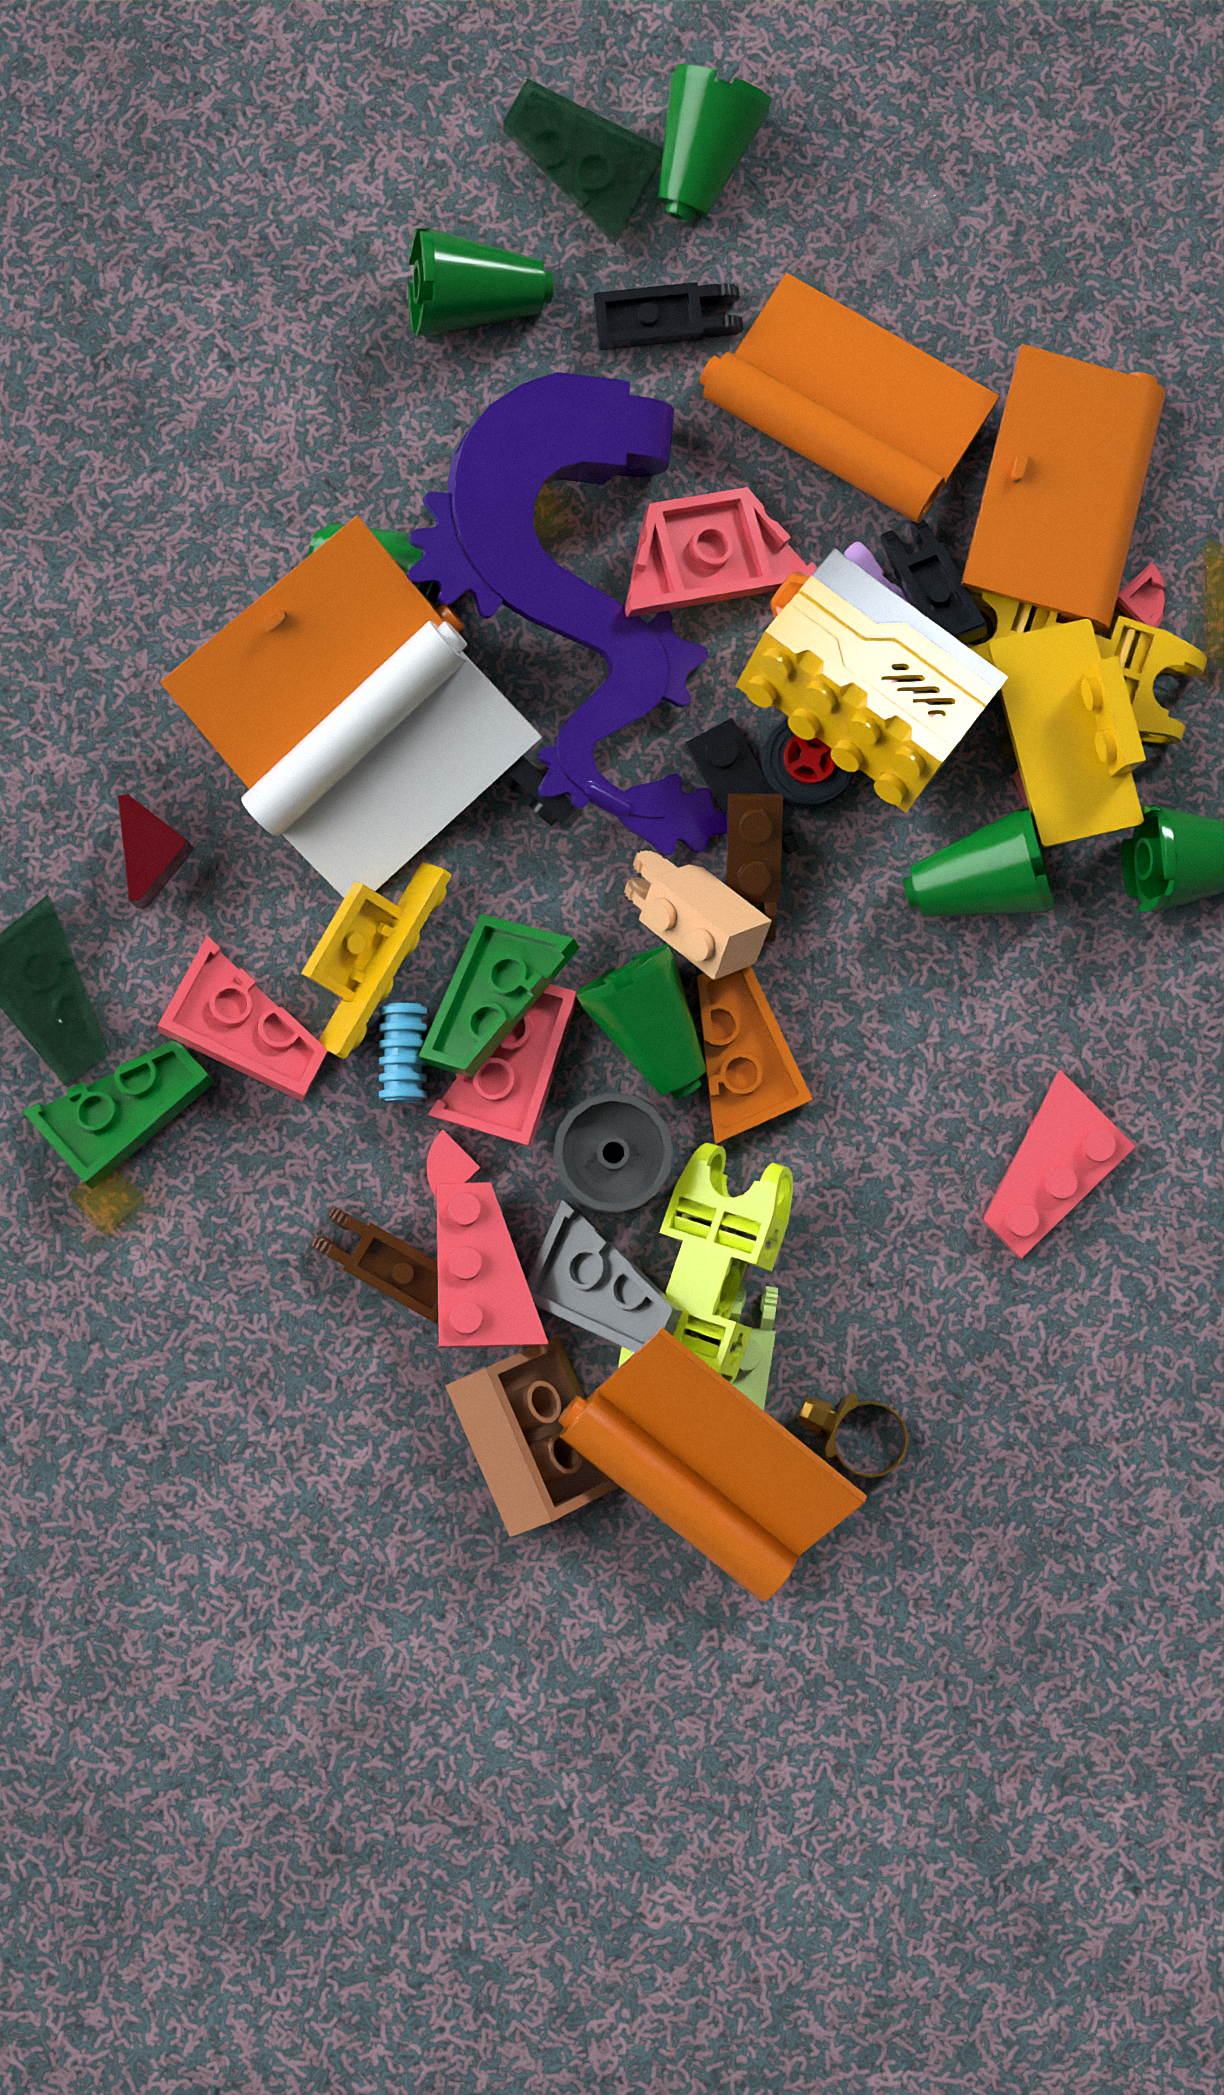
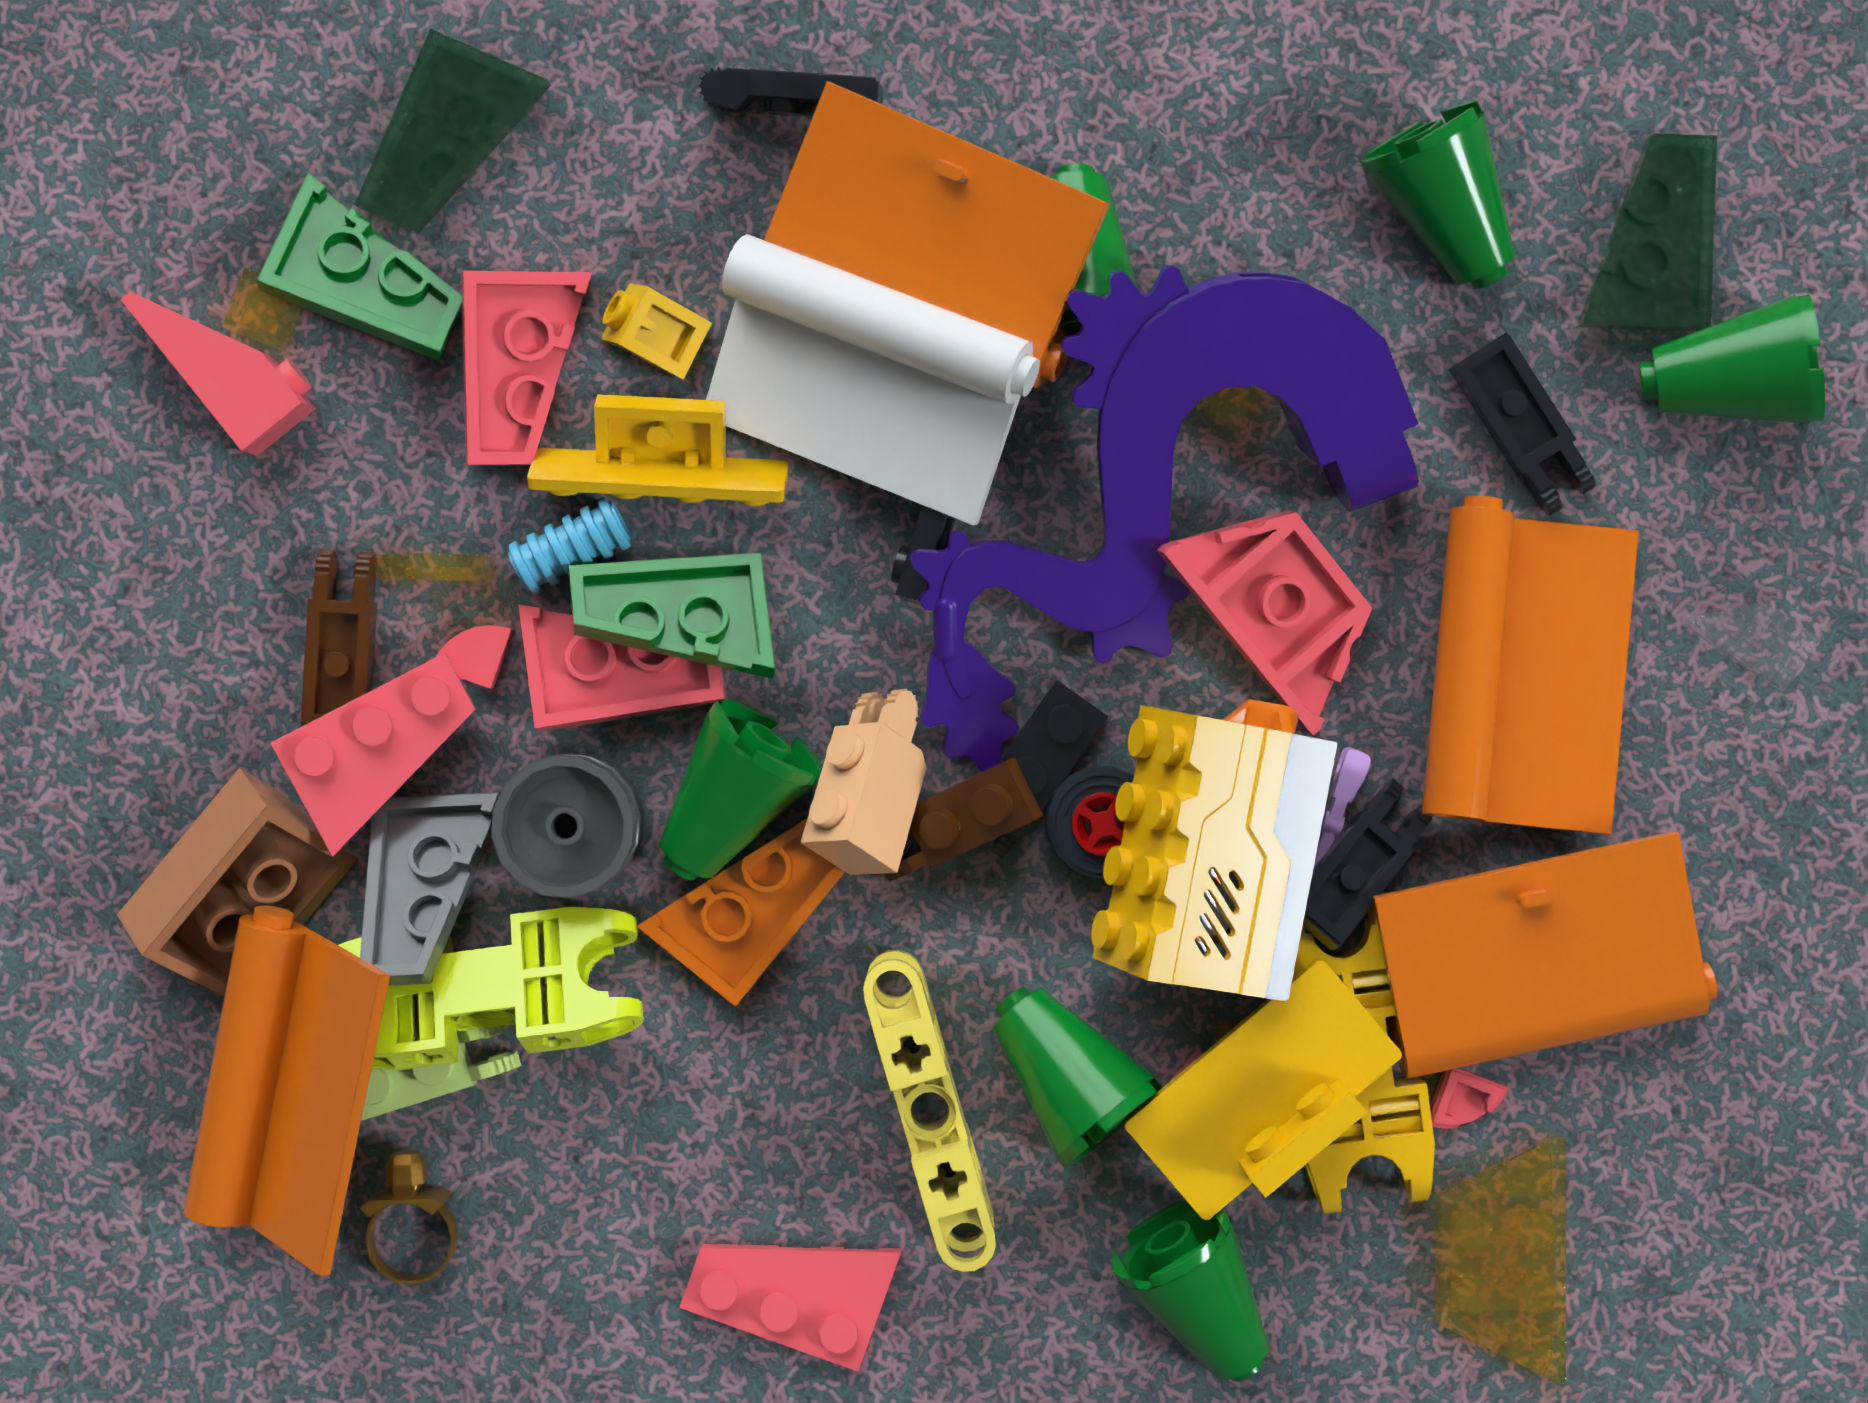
camera: 70 degrees right, 5 degrees up
(144, 1243) = (239, 385): none -> coral slope
(145, 728) = (780, 91): none -> black hinge
(150, 851) = (651, 163): dark red slope -> none
(272, 909) = (654, 328): none -> yellow bracket
(367, 1163) = (436, 567): none -> clear yellow tile
(990, 1002) = (945, 1199): none -> light yellow piece

